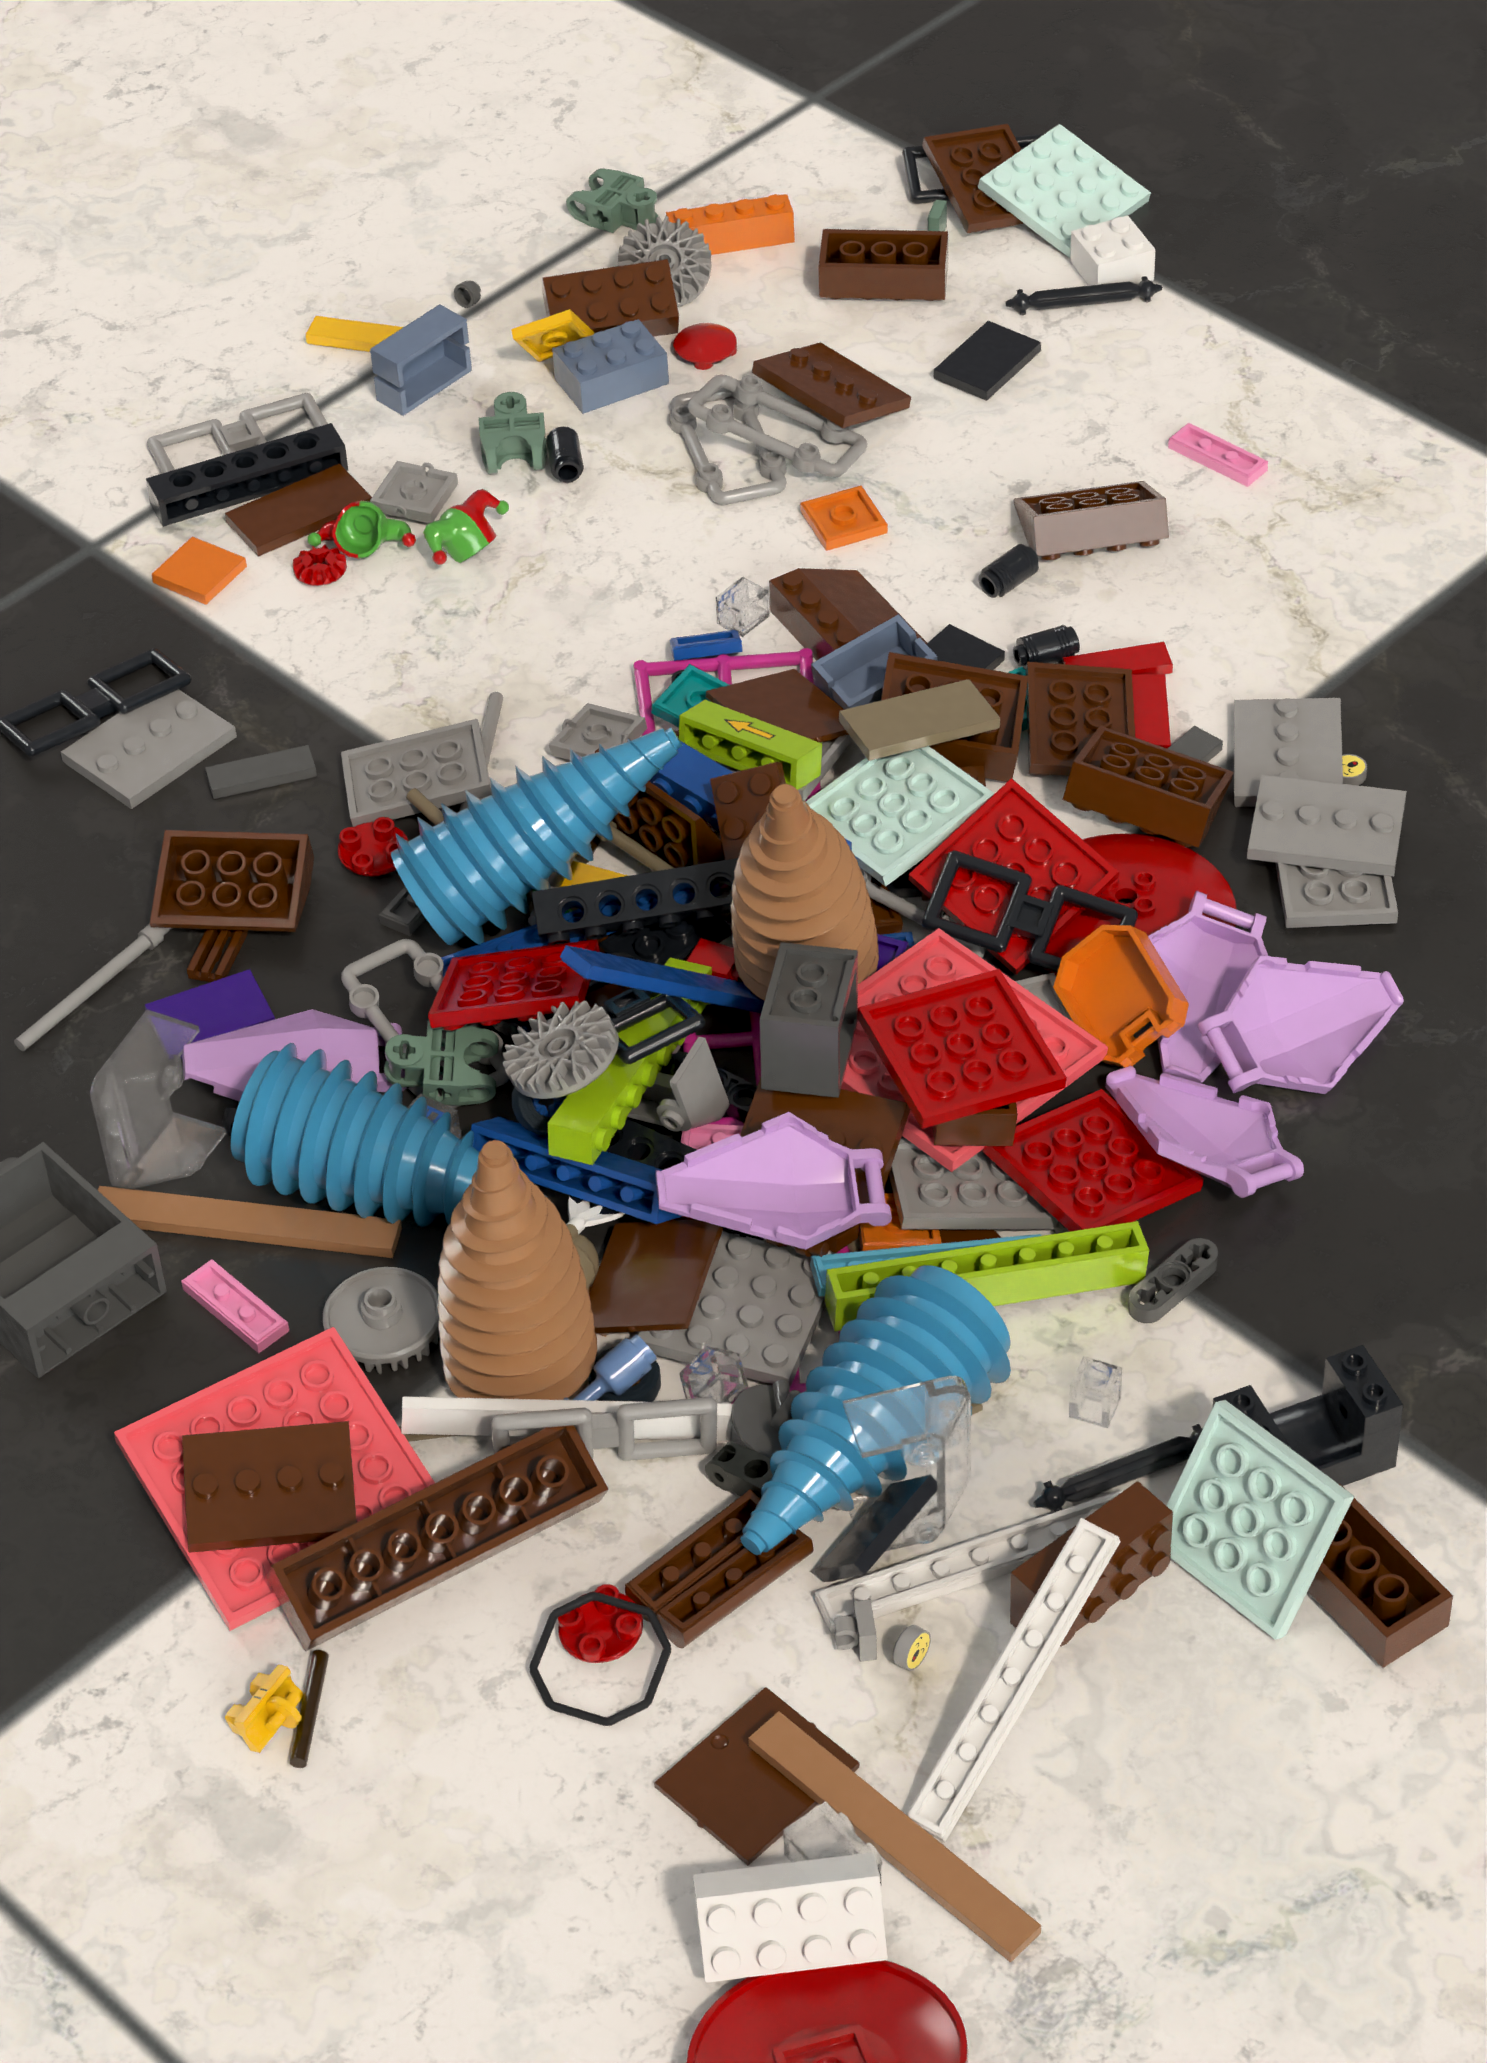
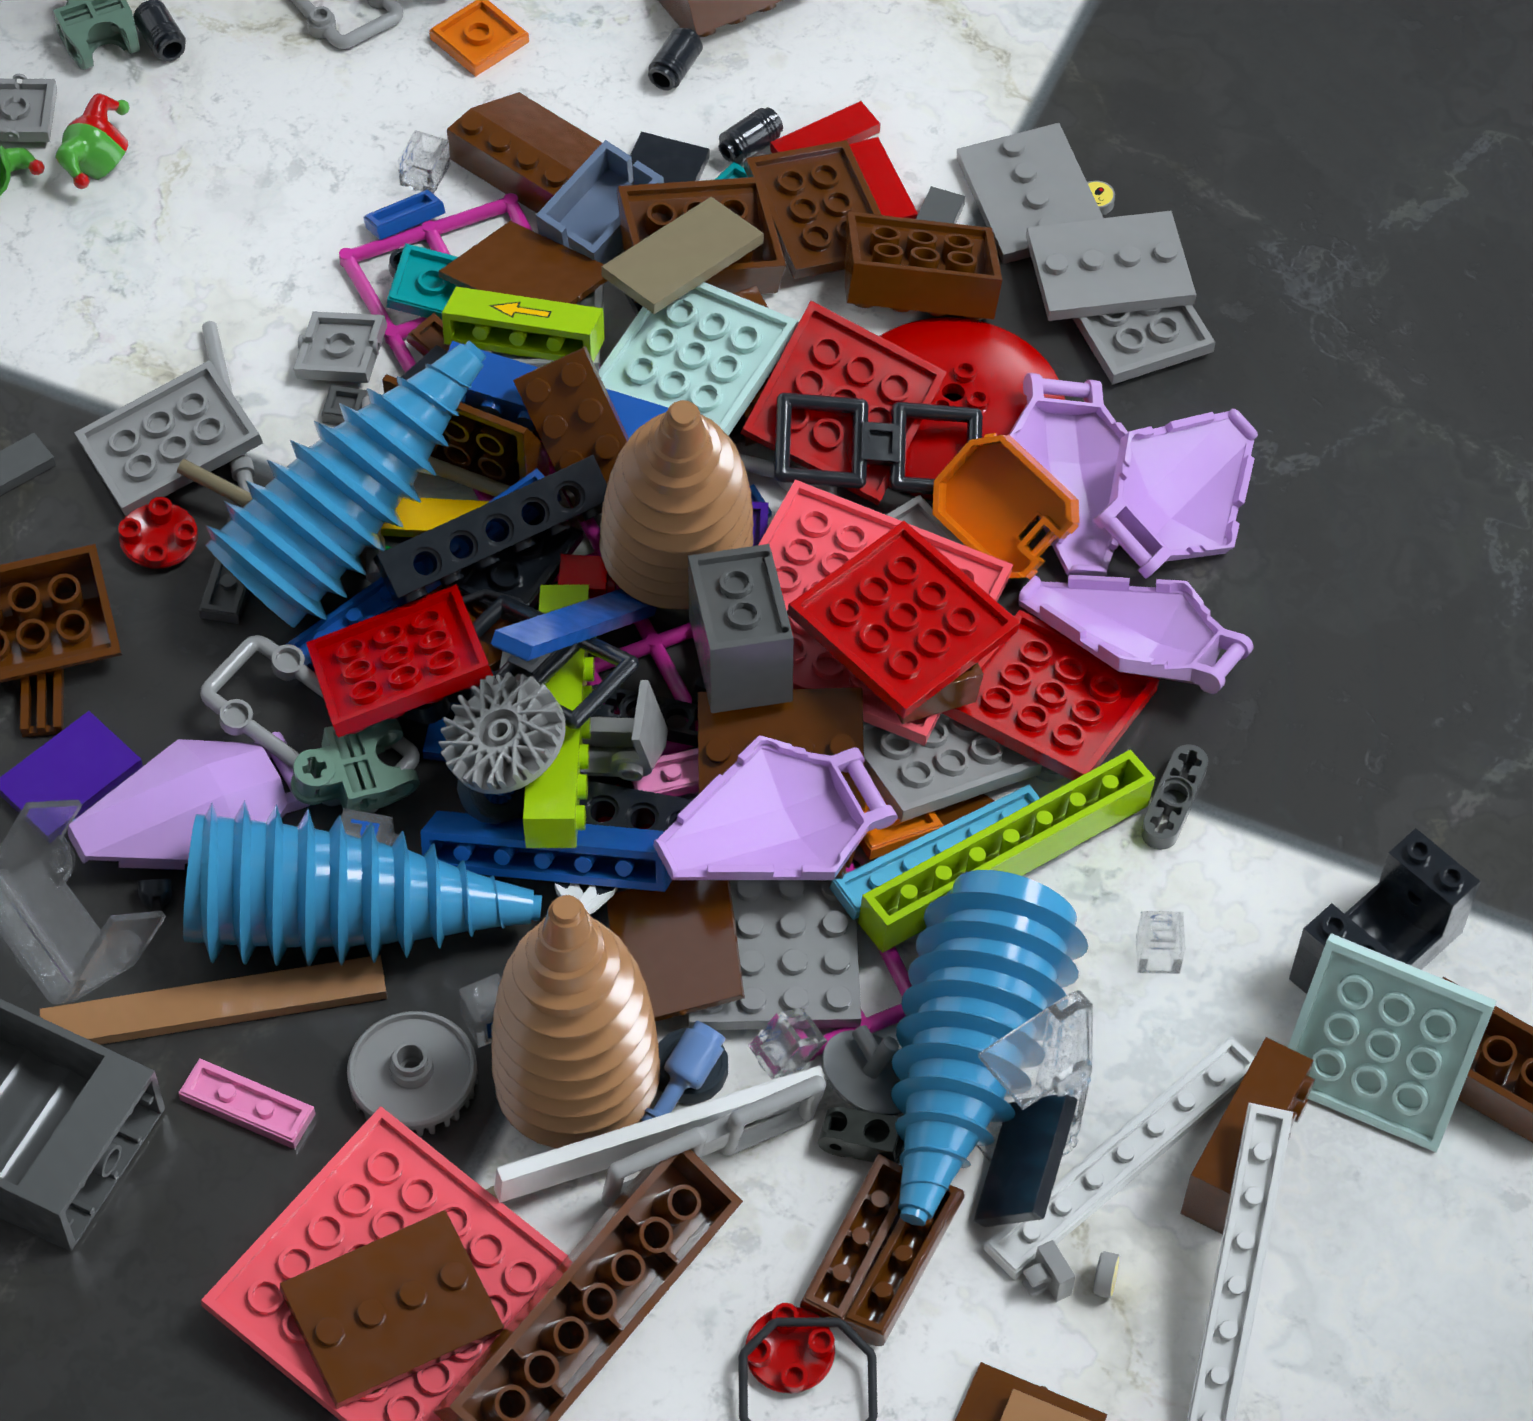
camera: 25 degrees left, 10 degrees up
(1118, 1471) = (1221, 1014): black wheel -> none

